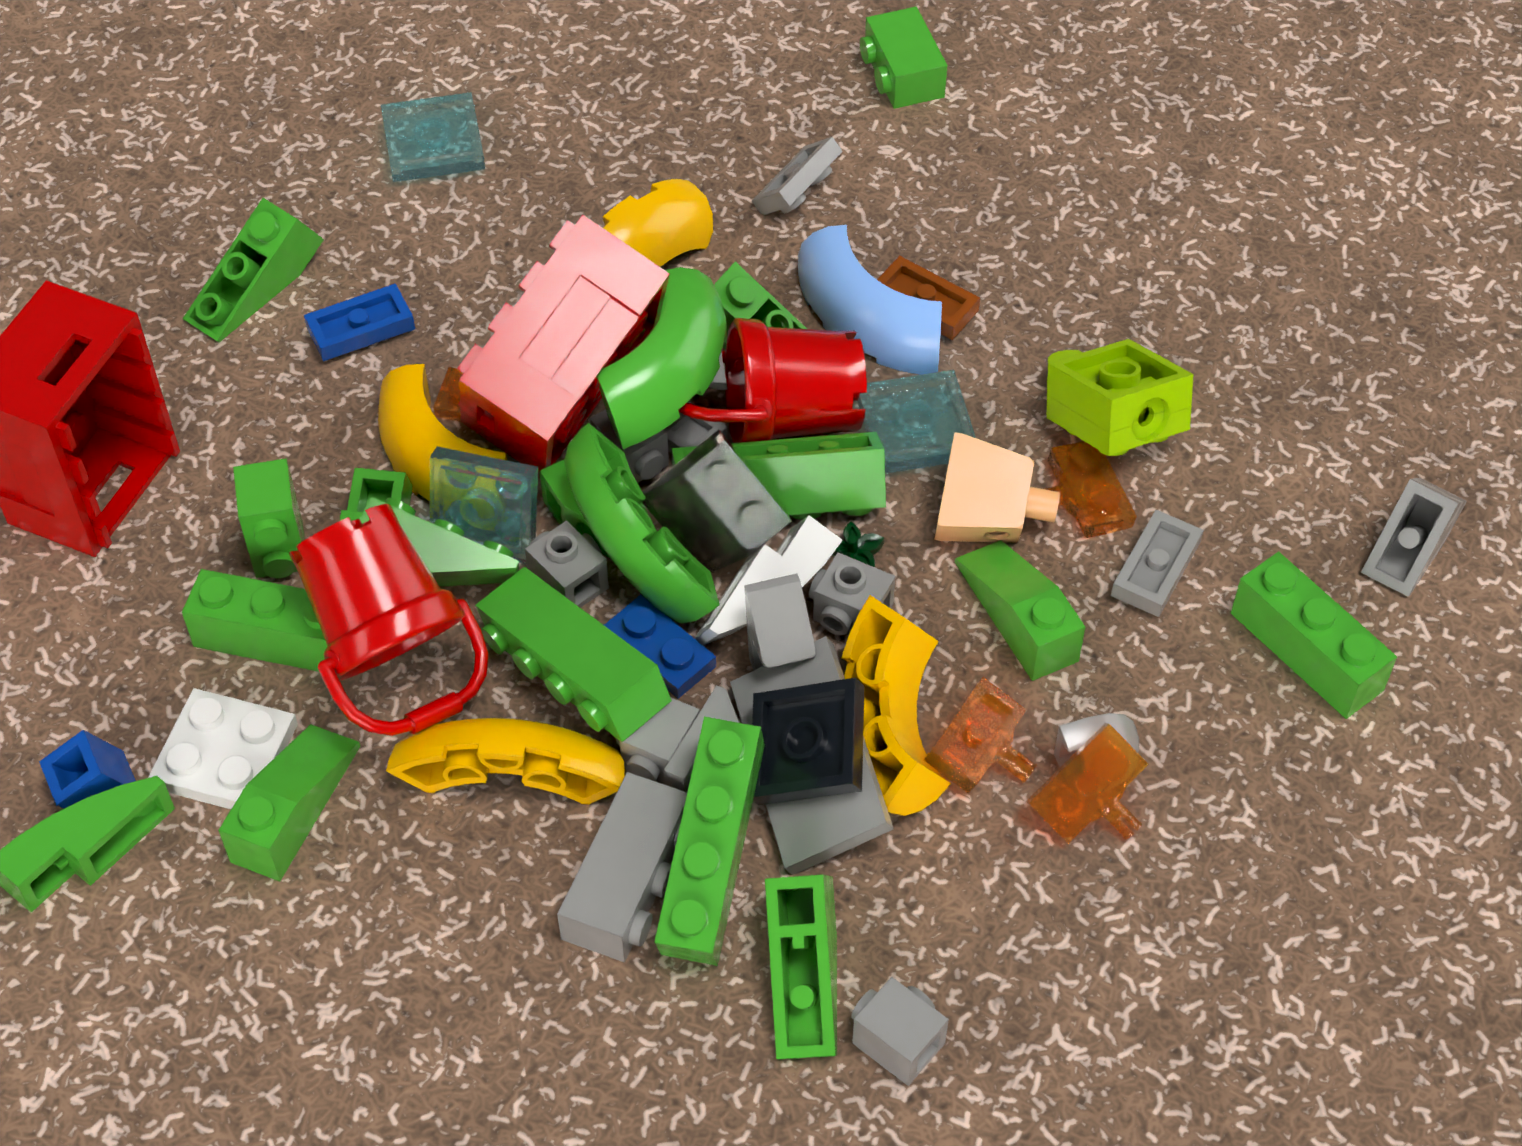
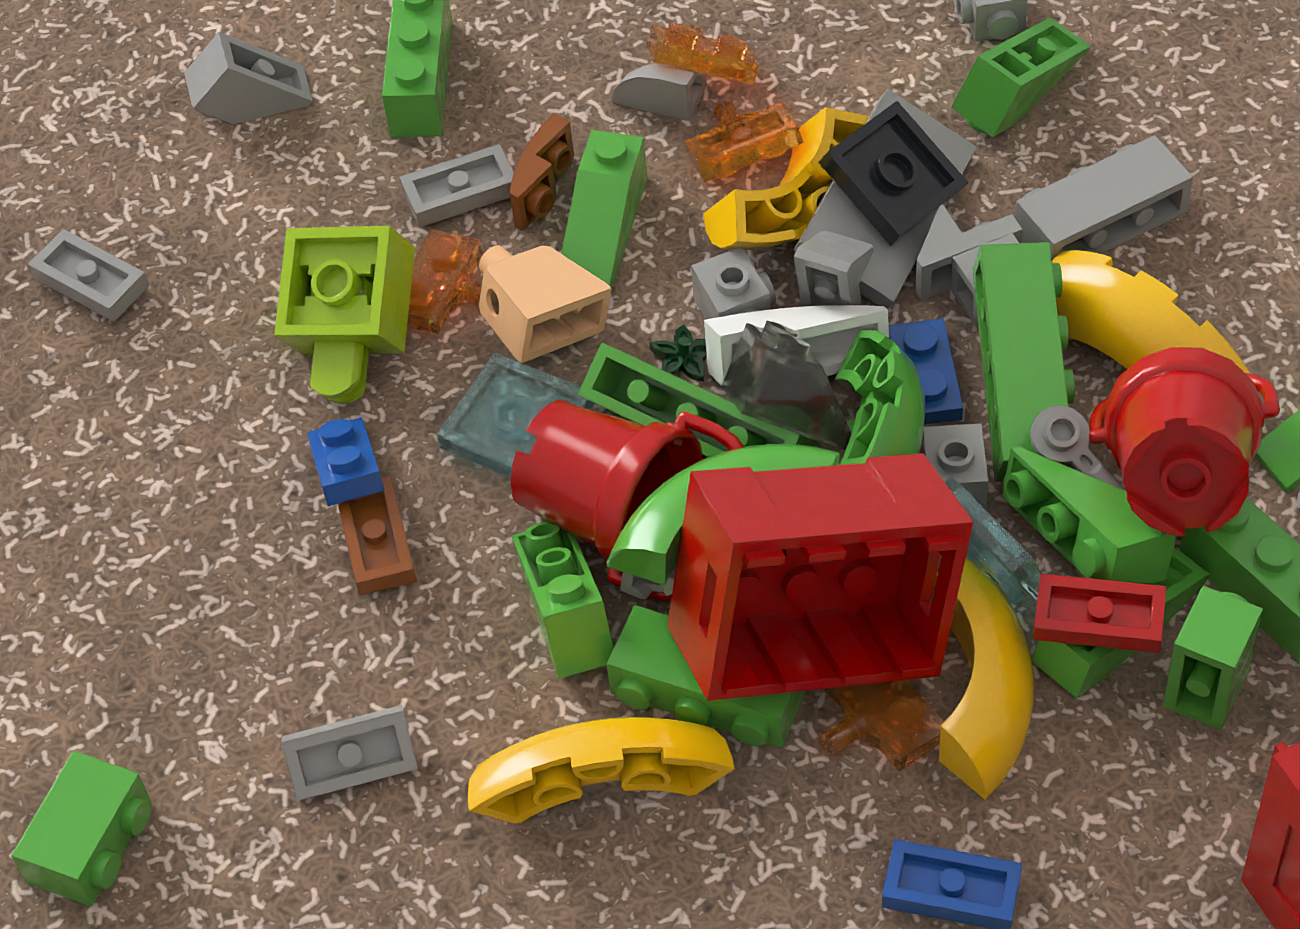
camera: 135 degrees left, 0 degrees up
(375, 473) = (1100, 613): none -> red plate
(487, 593) = (1063, 437): none -> light grey plate
(710, 841) = (1028, 151): bright green brick -> none
(891, 325) = (449, 588): light blue brick -> none
(995, 318) = (345, 460): none -> blue plate
(1106, 601) = (533, 180): none -> dark orange slope
(1330, 334) = (88, 275): none -> light grey plate

